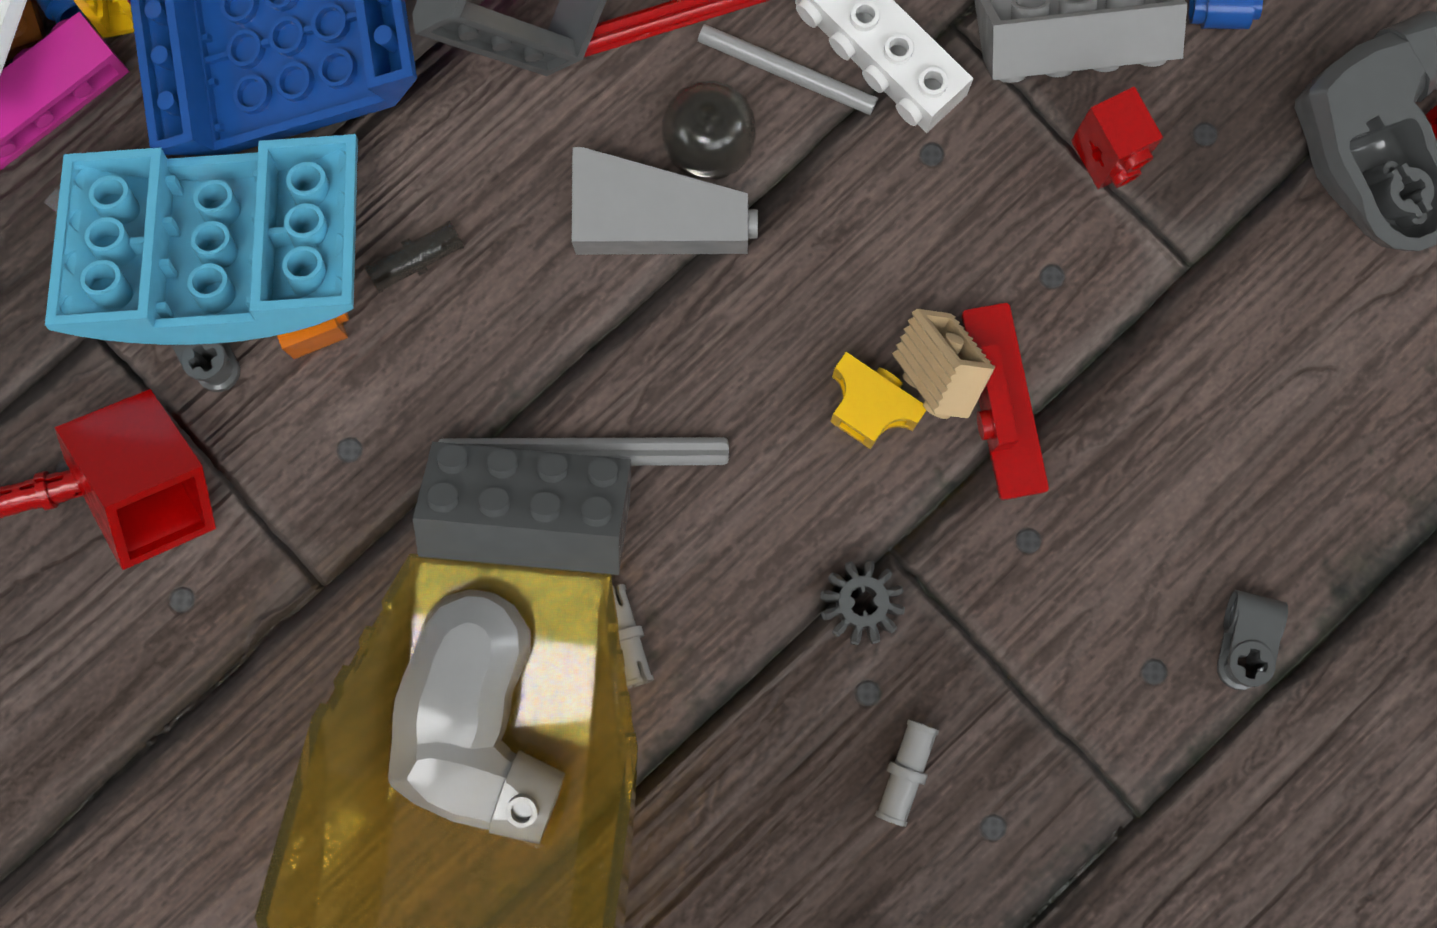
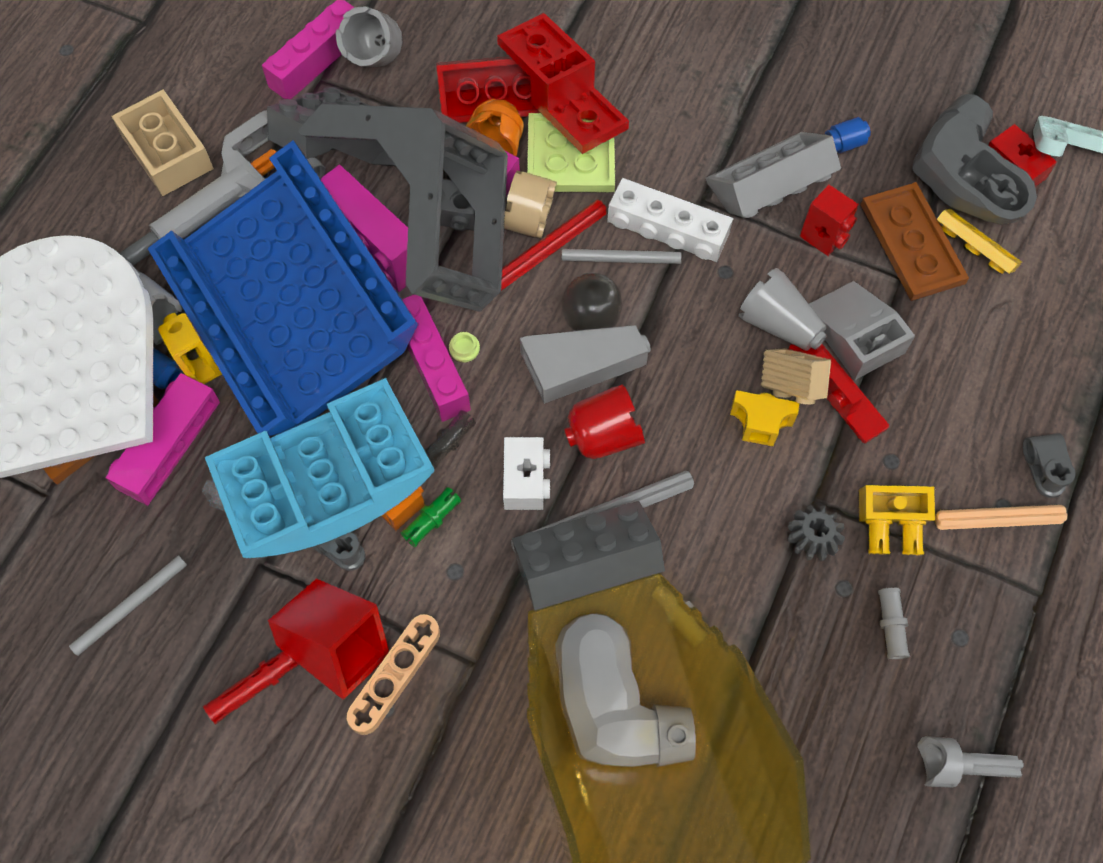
camera: 25 degrees left, 15 degrees down
(205, 552) = (390, 671): none -> light nougat beam
(344, 361) = (431, 516): none -> green pin
(439, 132) = (435, 363): none -> dark pink brick
(493, 325) = (519, 456): none -> white brick
(497, 124) = (464, 347): none -> yellowish green plate
(635, 326) = (603, 424): none -> red cylinder
(974, 259) = (783, 312): none -> light grey cone
(992, 613) = (903, 504): none -> yellow brick
(1078, 323) = (862, 329): none -> light grey slope
(1140, 687) = (1000, 517): none -> light nougat axle
(1236, 218) = (914, 241): none -> dark orange plate
(1334, 259) = (978, 242): none -> yellow plate

